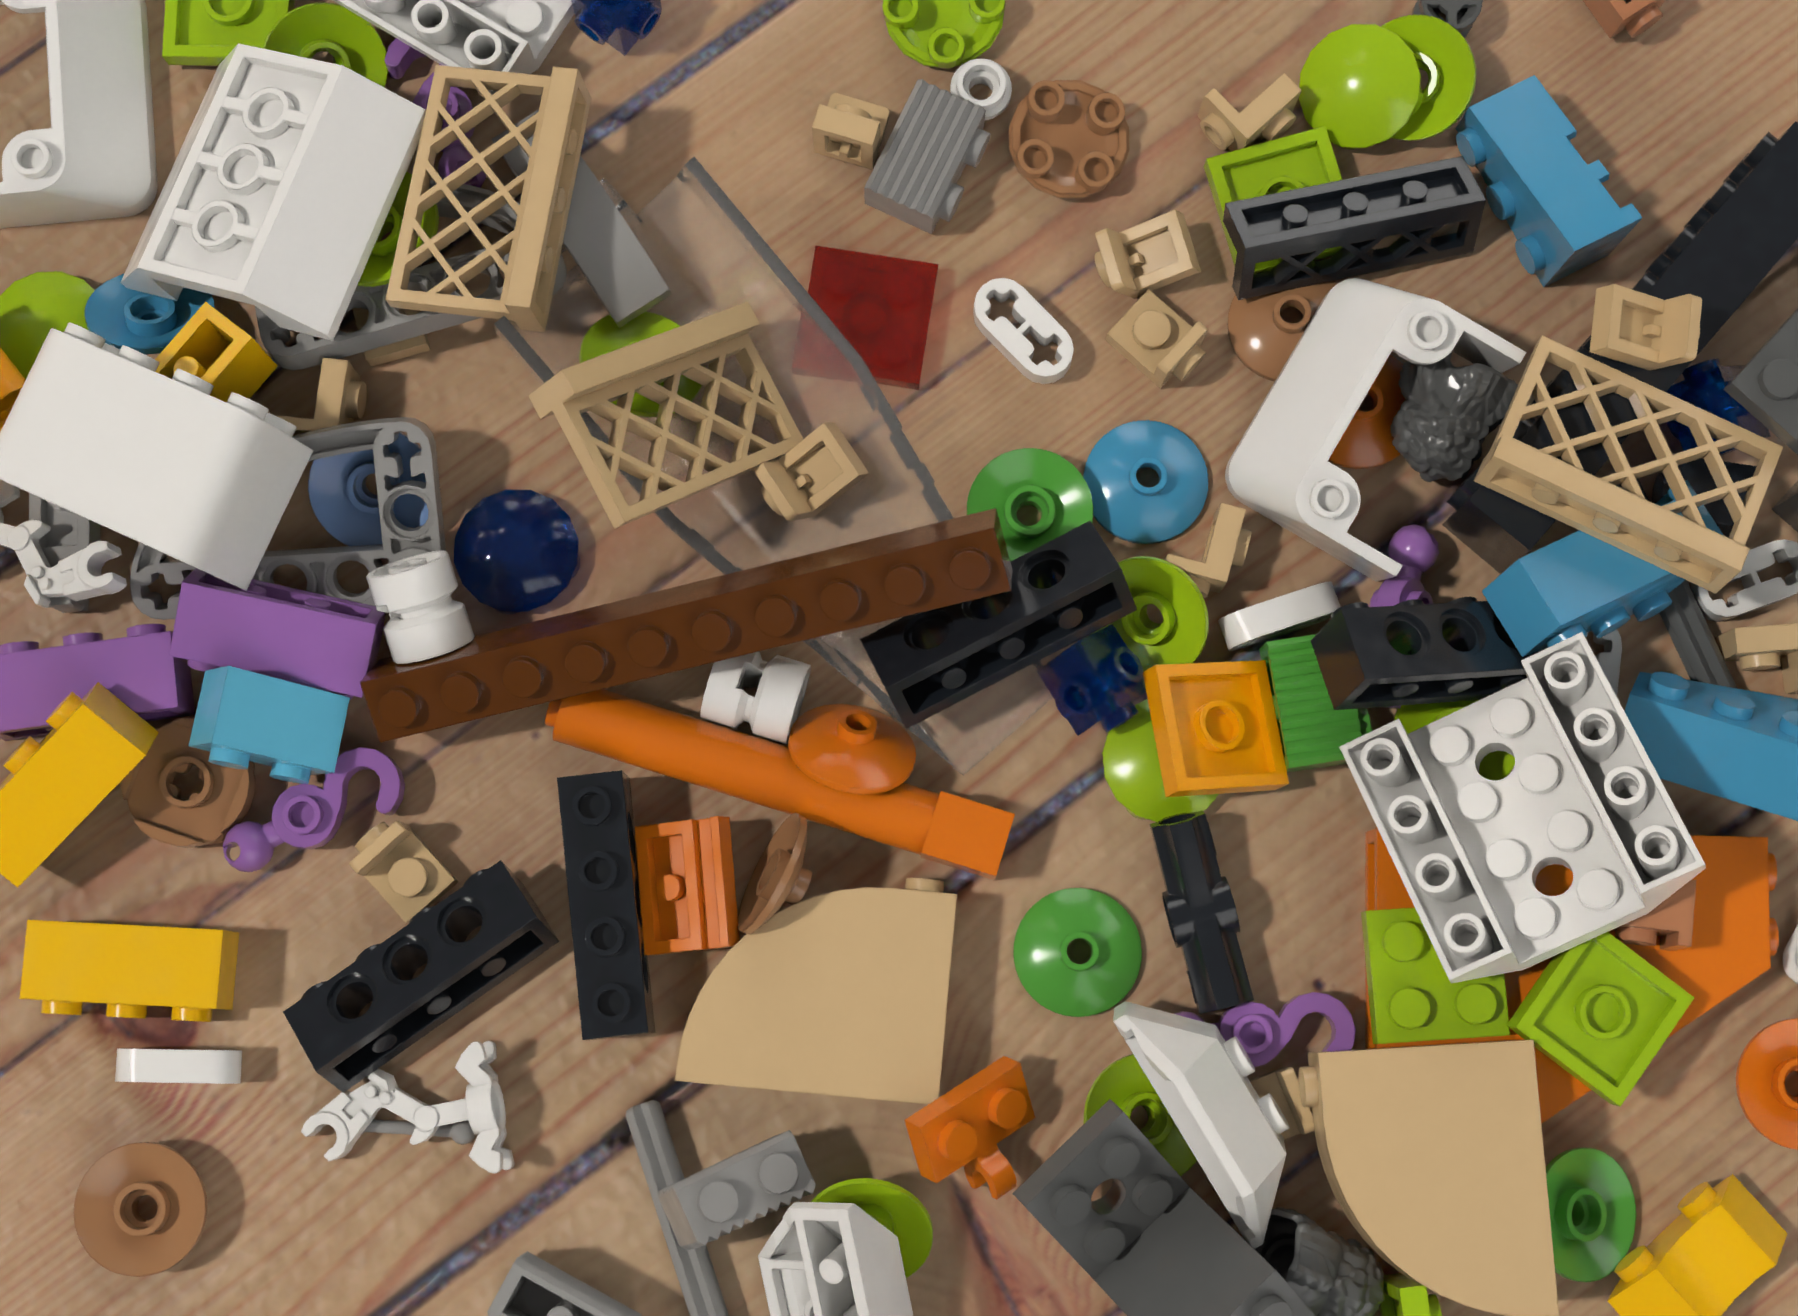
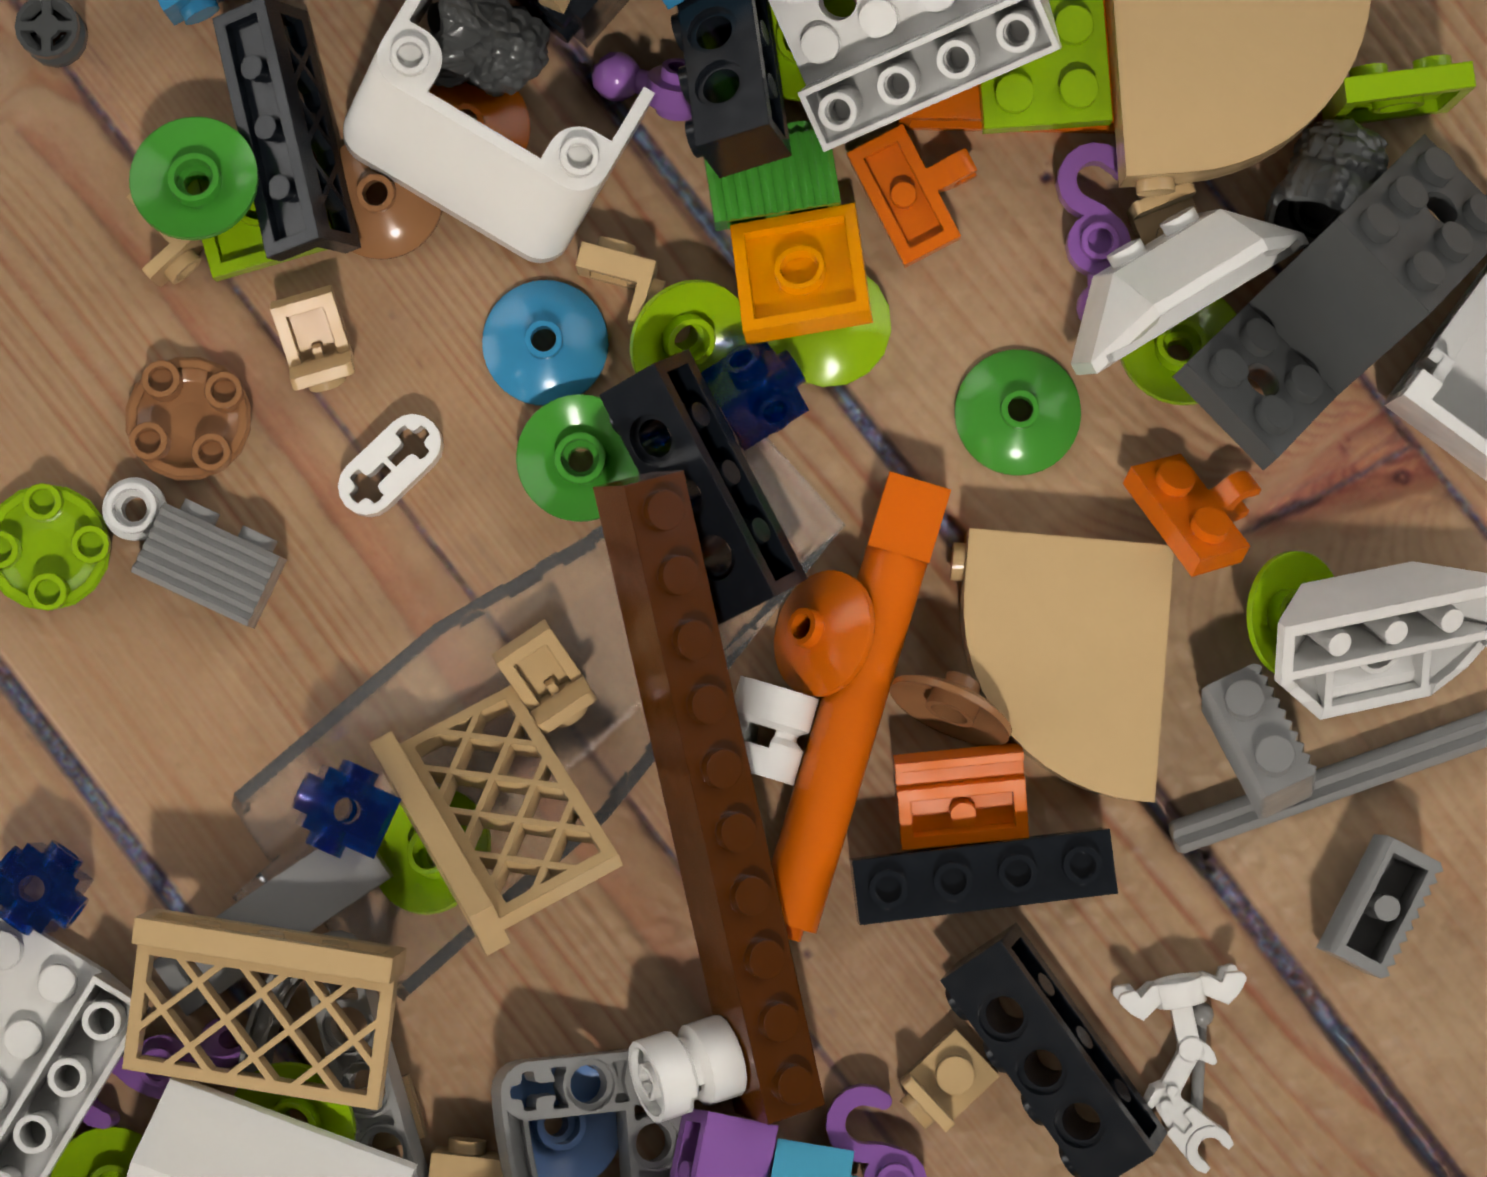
camera: 90 degrees left, 5 degrees up
(516, 551) = (621, 977): clear blue dish -> none
(657, 261) = (368, 812): none -> clear blue brick
(850, 130) = (178, 641): tan bracket -> none
(879, 308) = (369, 615): clear red plate -> none
(1158, 340) = (401, 328): tan bracket -> none
(1201, 911) = (980, 290): black piece -> none
(1279, 616) = (685, 209): white beam -> none
(1300, 840) = (909, 193): none -> orange plate
(1320, 117) = (186, 152): none -> bright green dish
(1360, 85) = (122, 108): lime dish -> none
(1450, 72) = (131, 98): lime dish -> none

